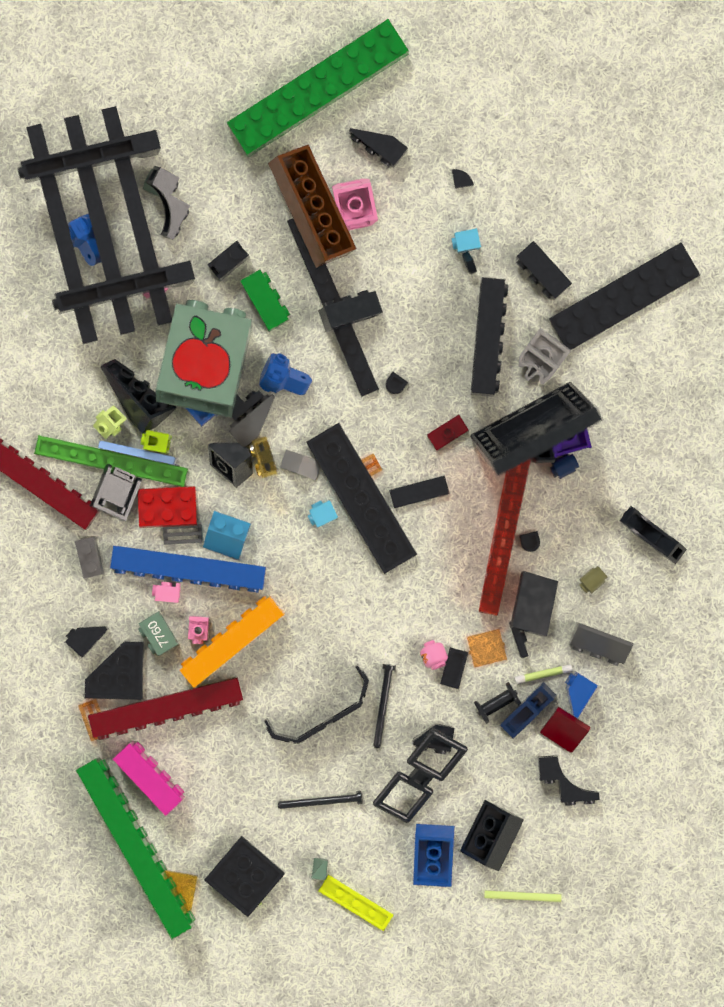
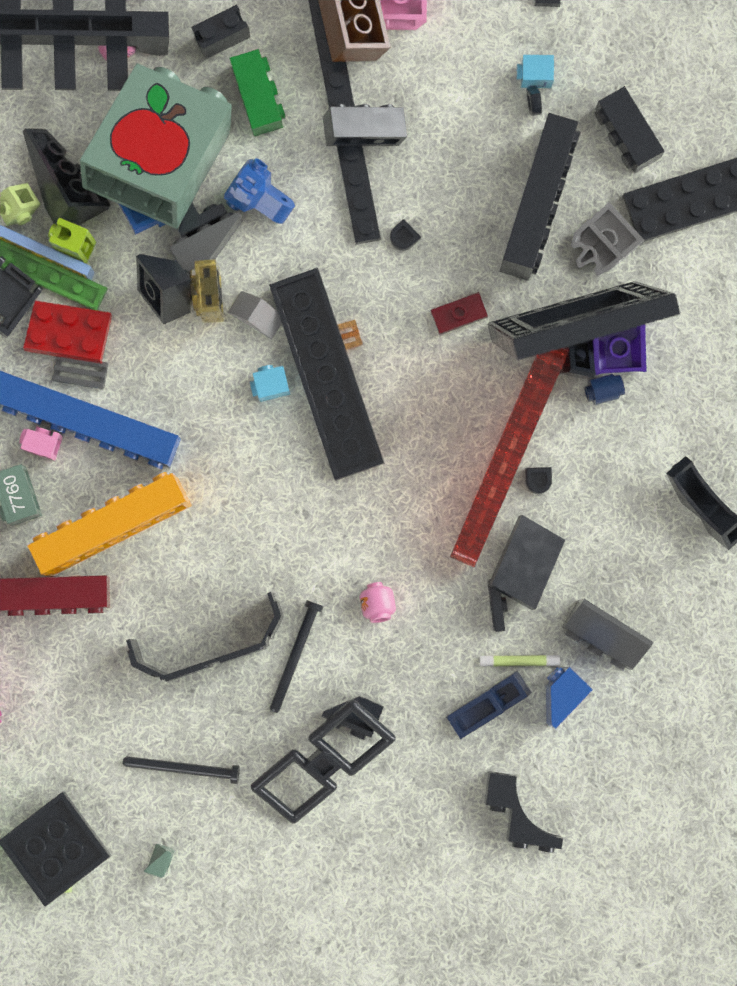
camera: 15 degrees right, 5 degrees down
(203, 623) = (78, 493): bright pink brick -> none
(226, 535) = (137, 383): dark azure slope -> none
(355, 902) = (198, 918): neon yellow tile -> none
(419, 491) = (404, 383): black tile -> none
(433, 855) = (318, 875): blue slope -> none
(454, 668) = (401, 626): black tile -> none
(486, 648) = (450, 609): clear orange piece -> none
(491, 835) = (403, 866): black slope -> none
(497, 702) = (450, 685): black hose -> none
(522, 896) = (428, 959): yellowish green bar -> none
(565, 729) = (534, 742): dark red tile -> none
(592, 580) = (612, 547): olive brick -> none

